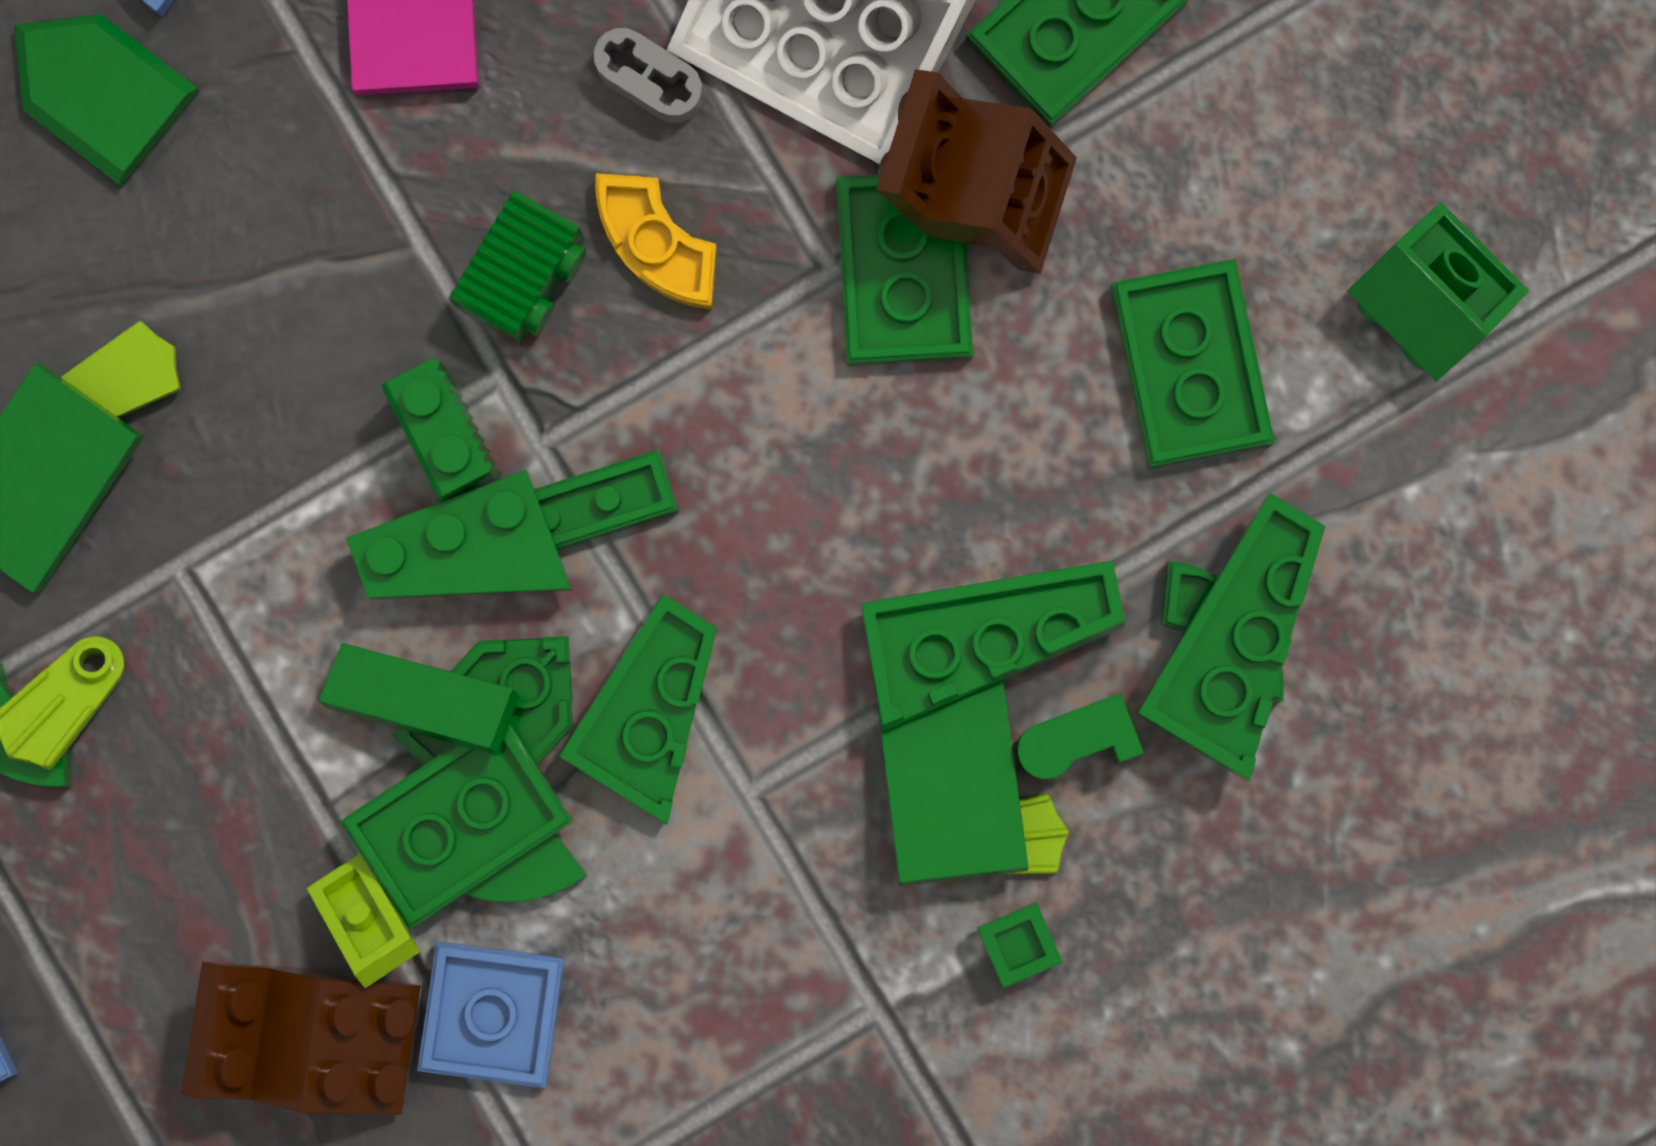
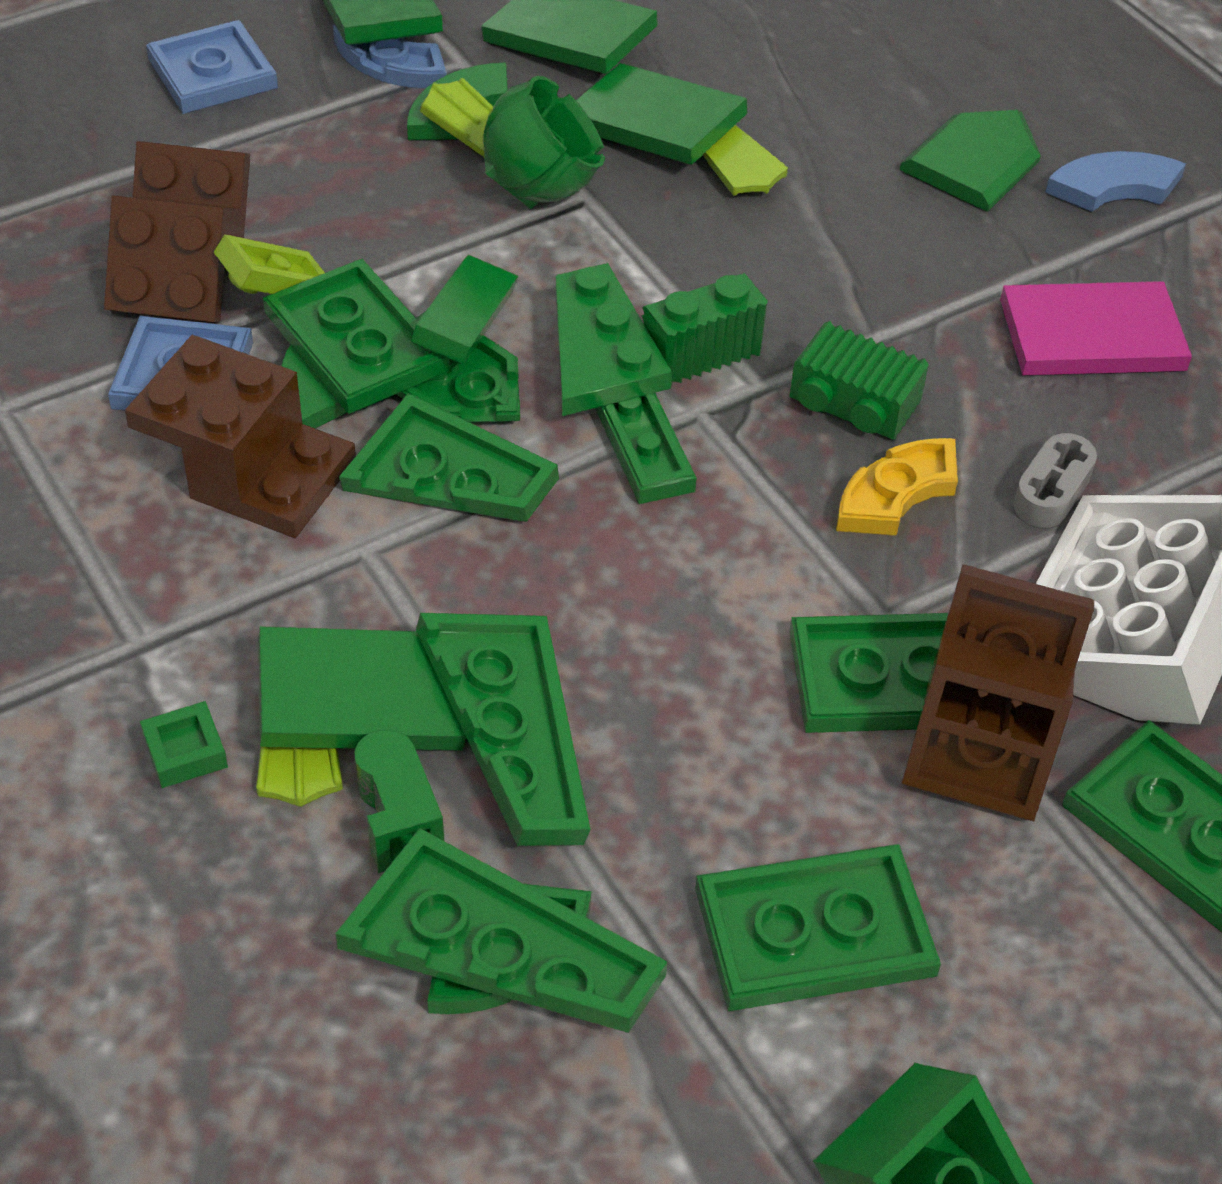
camera: 85 degrees right, 35 degrees down
(142, 614) = (540, 143): none -> green piece
(630, 930) = (241, 435): none -> reddish brown bracket

